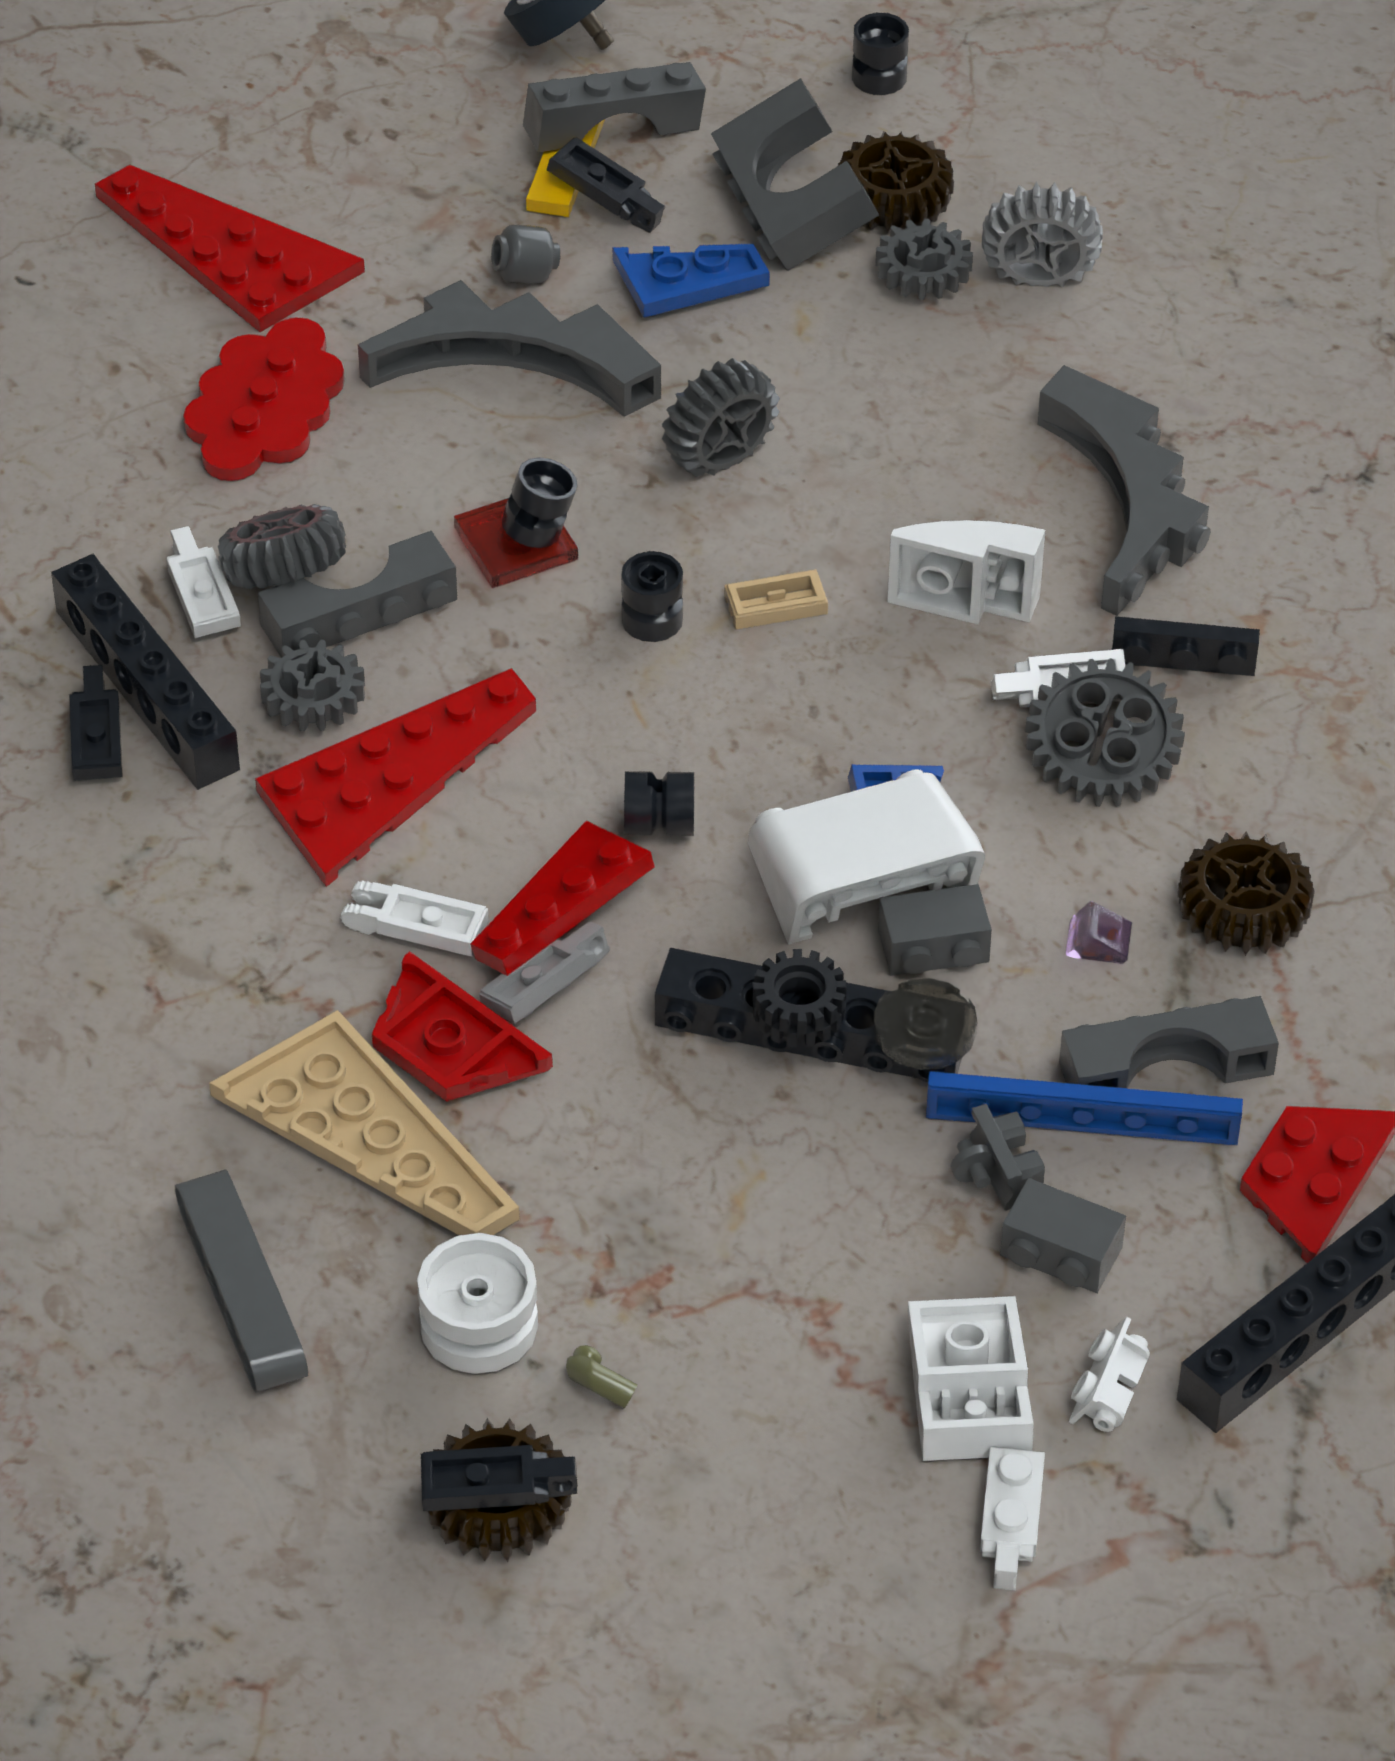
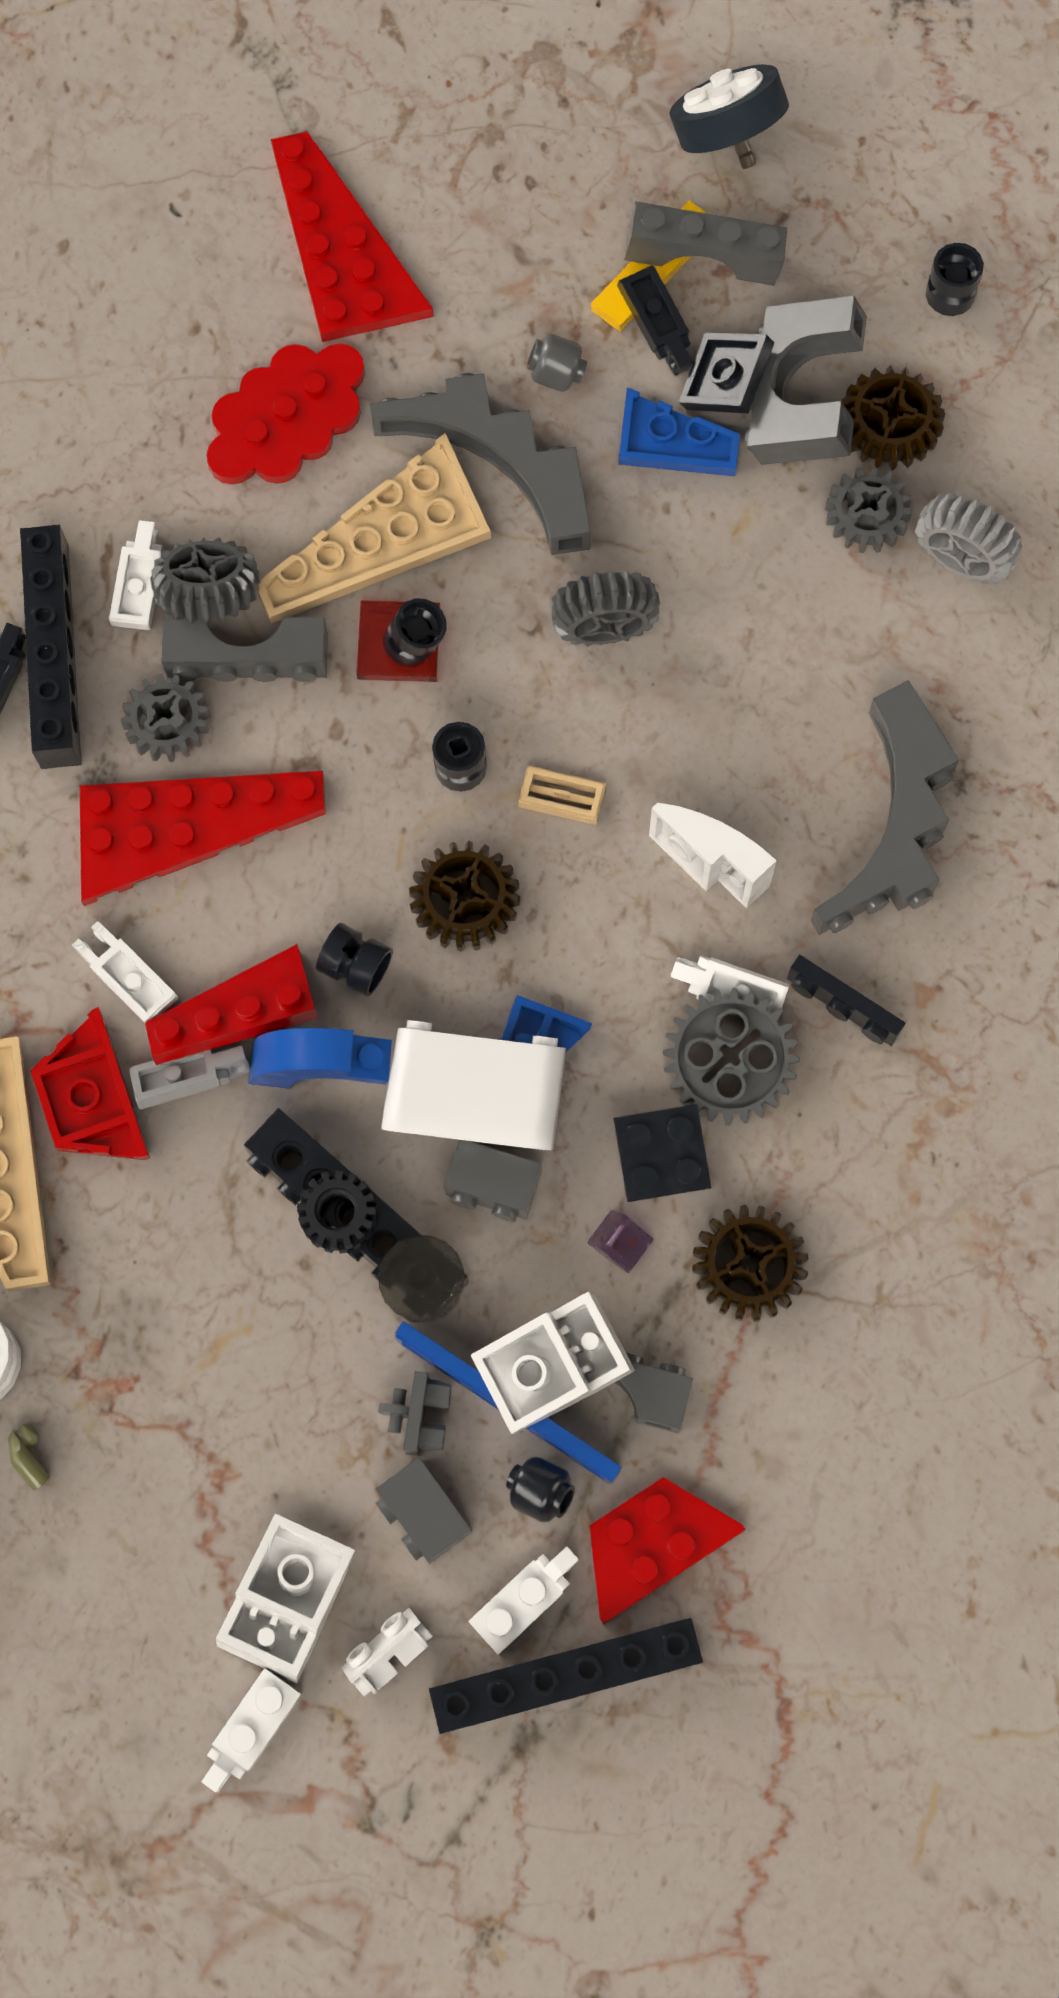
camera: 30 degrees right, 25 degrees up
(440, 453) = (391, 530): none -> tan wing
(670, 880) = (313, 1053): none -> blue arch
(707, 197) = (726, 372): none -> plate
(737, 711) = (435, 880): none -> dark brown gear
(1091, 840) = (662, 1153): none -> black plate
(1114, 1026) = (552, 1362): none -> white slope
(1170, 1165) = (540, 1489): none -> black head
(1219, 1273) = (523, 1600): none -> white hinge

